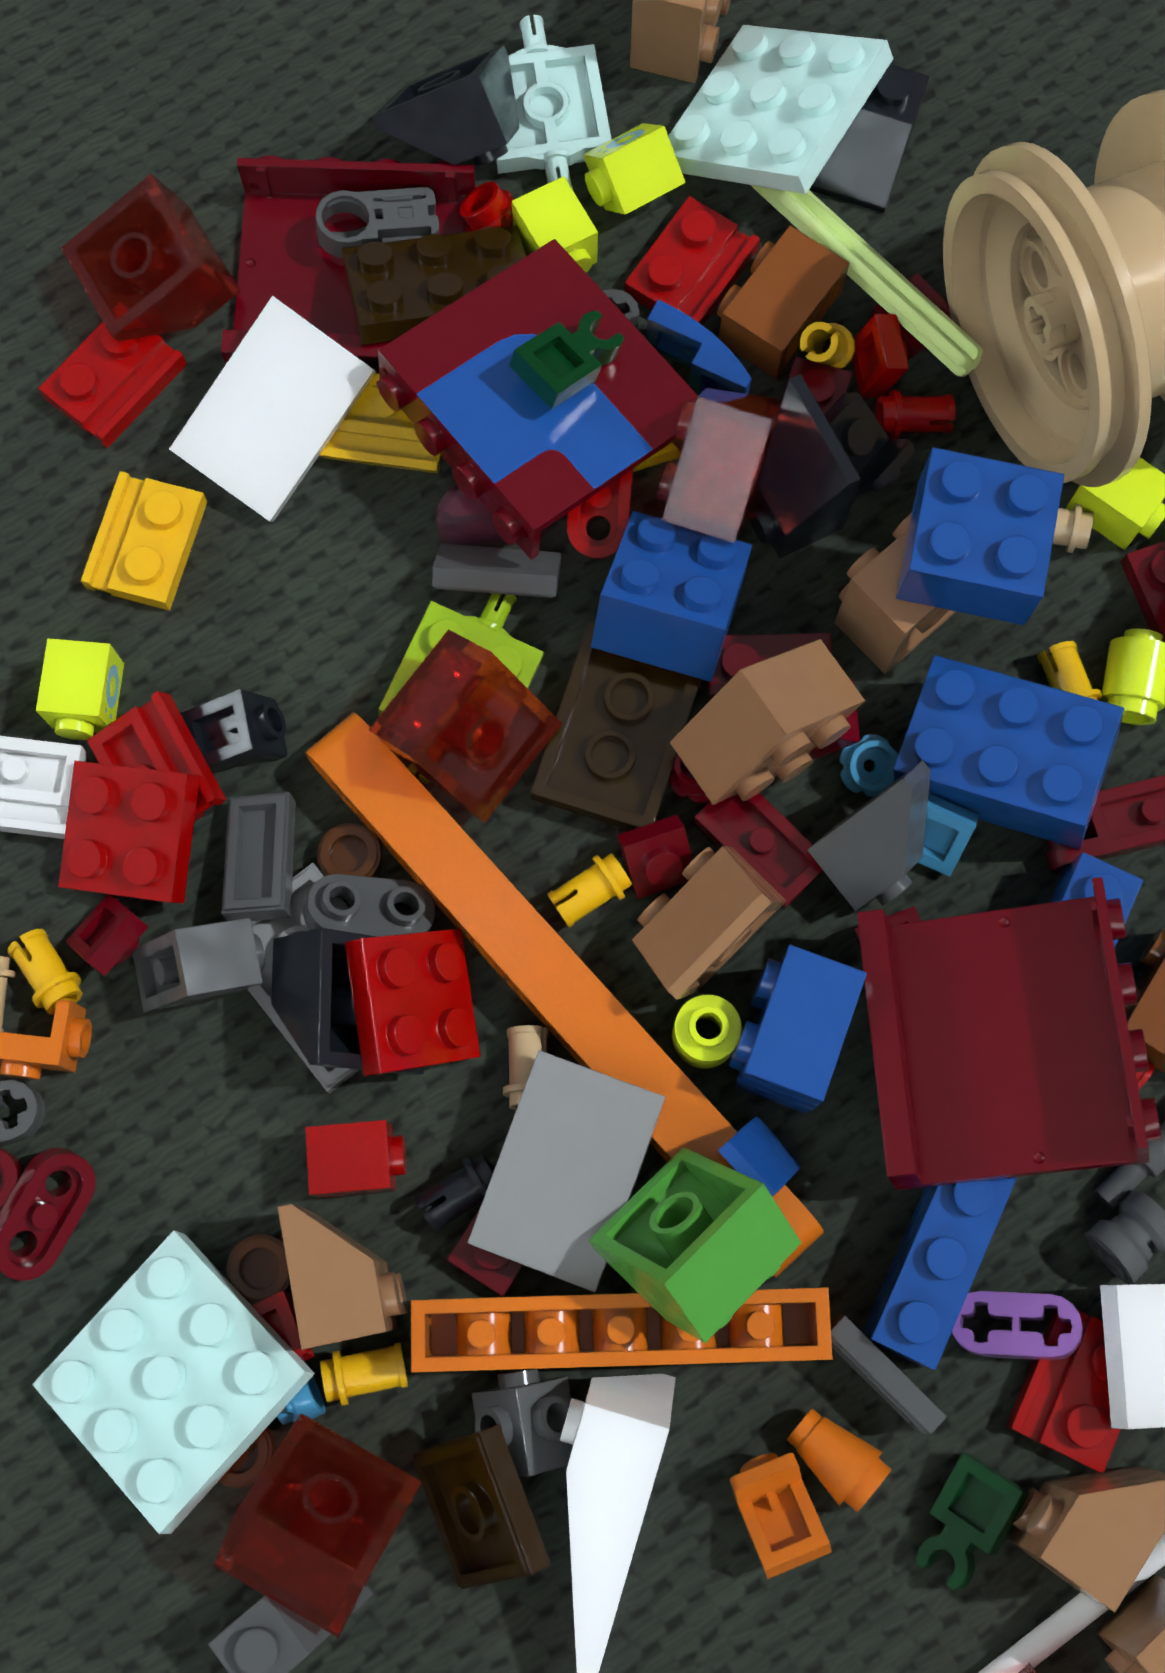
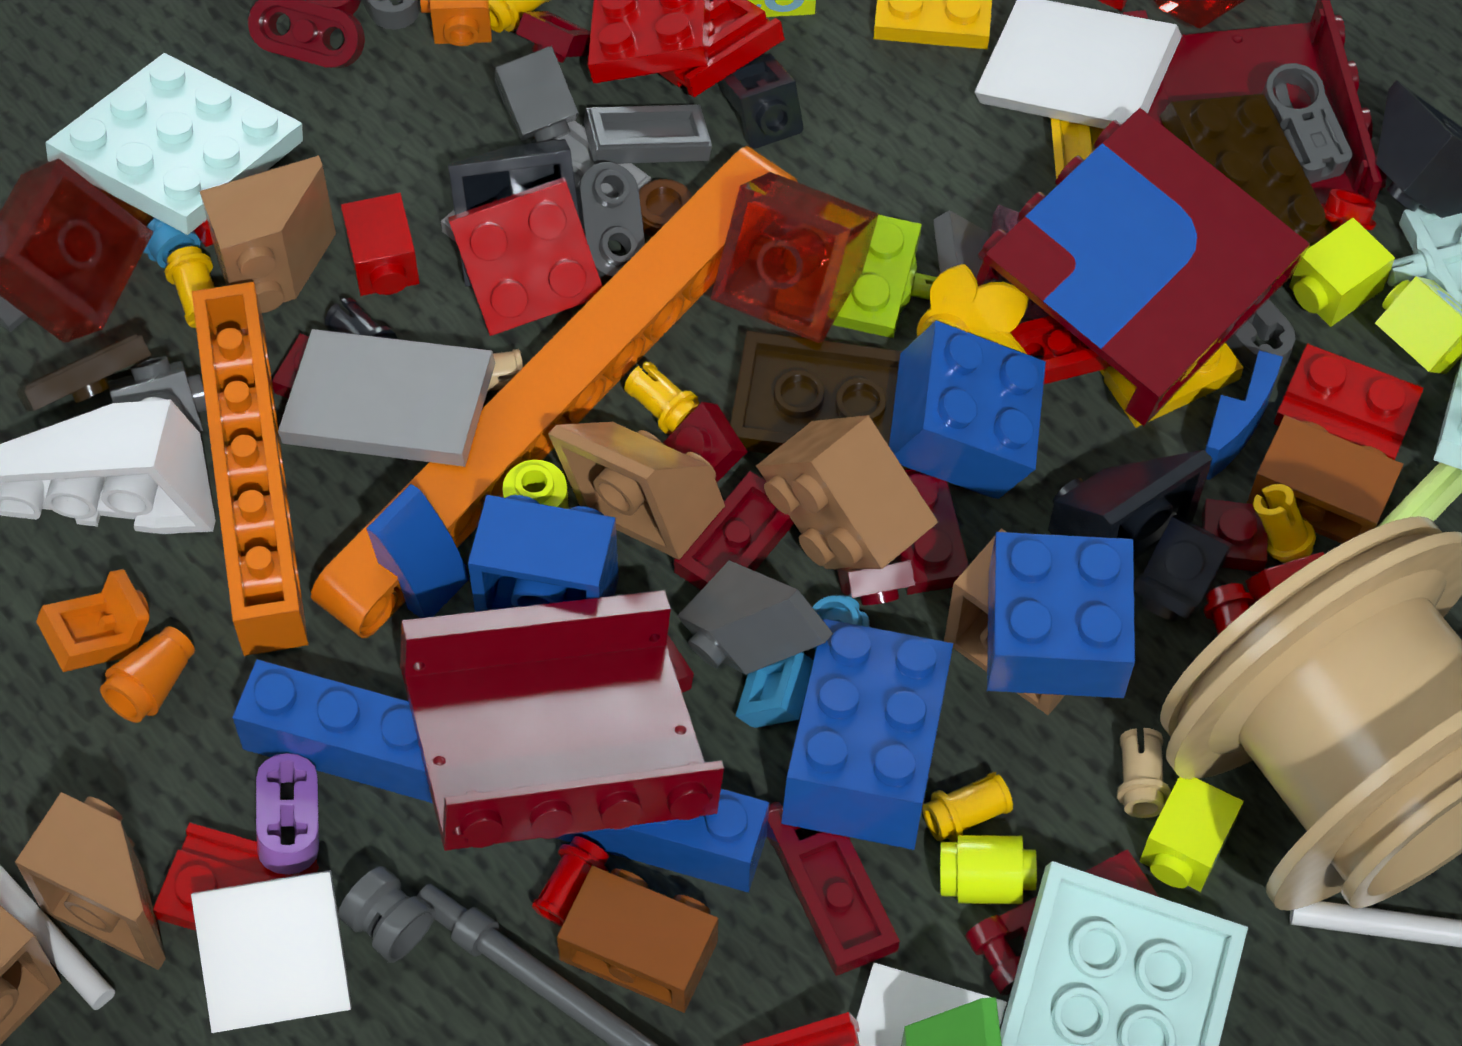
camera: 80 degrees right, 15 degrees down
(562, 362) = (1162, 249): dark green plate -> none
(575, 569) = (981, 310): none -> yellow plate
(697, 1242) = (319, 483): bright green slope -> none
(719, 461) = (1105, 412): slope -> none
(884, 1376) = (210, 715): dark grey tile -> none
(977, 1512) = (121, 786): dark green plate -> none

